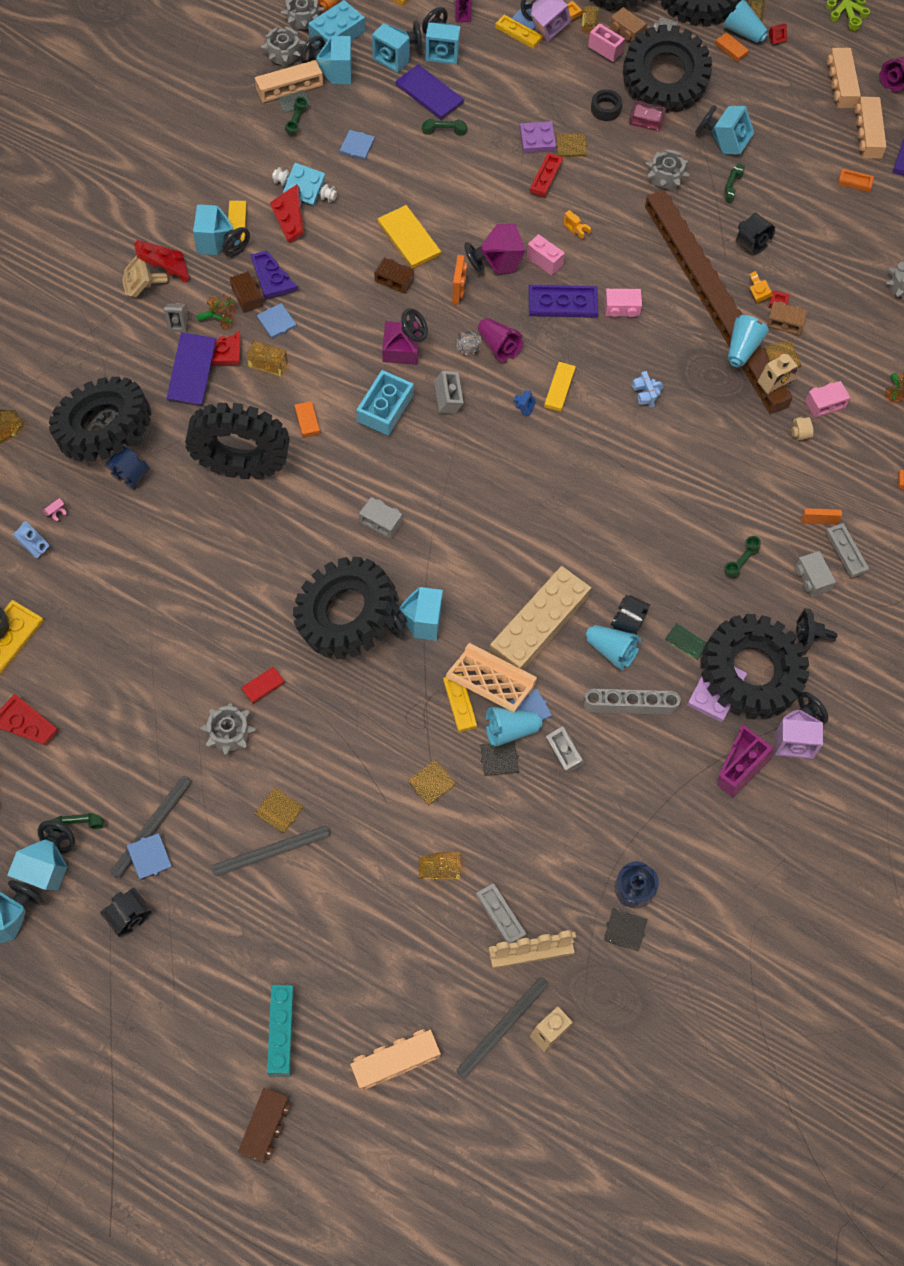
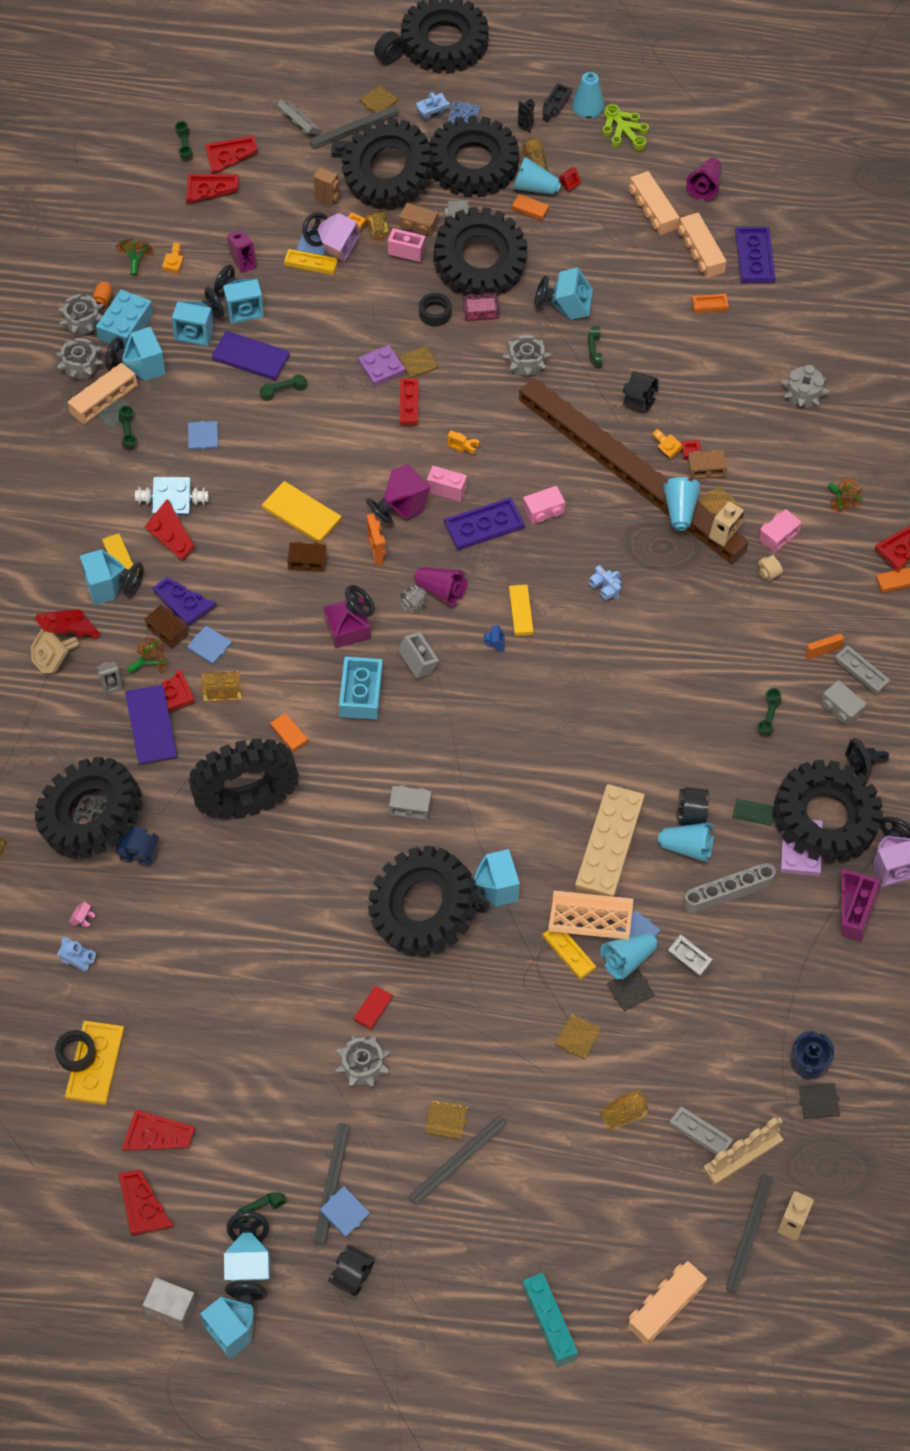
camera: 20 degrees left, 5 degrees down
(264, 1126) = (576, 1411): reddish brown brick -> none

